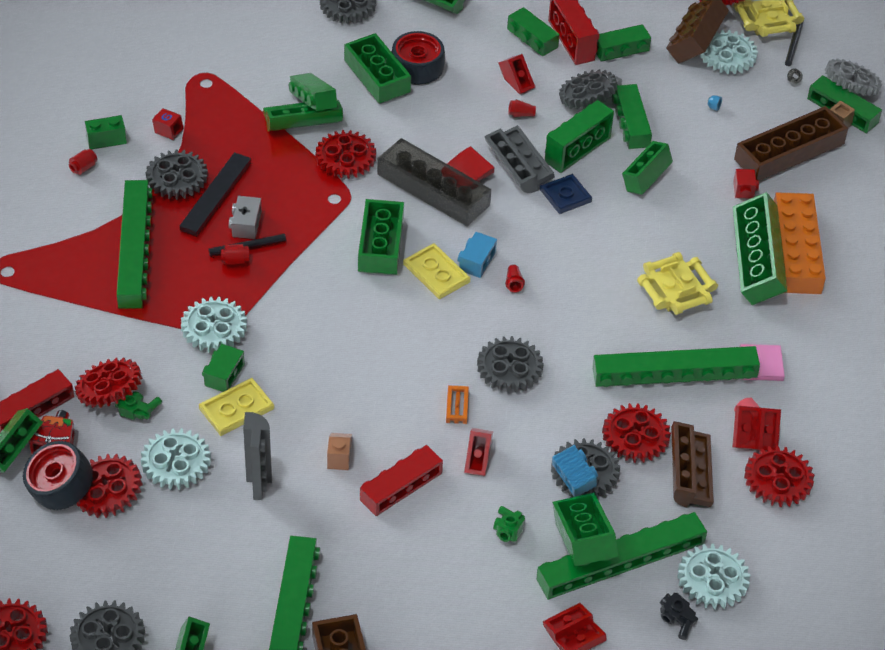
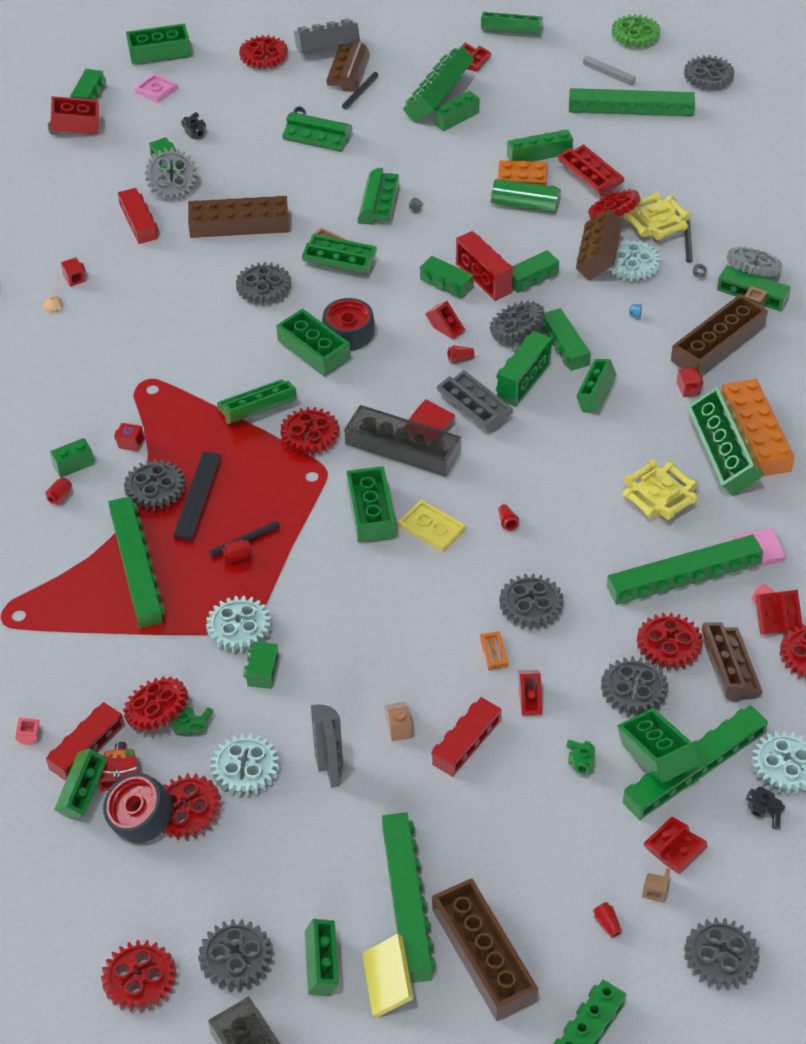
camera: 10 degrees left, 0 degrees up
(228, 408) = (285, 700): light yellow tile -> none
(245, 217) = (235, 512): light grey brick -> none
(313, 91) = (262, 377): green brick -> none
(477, 254) = (466, 501): dark azure brick -> none
(566, 193) = (527, 426): dark blue tile -> none
(575, 471) = (629, 690): dark azure brick -> none

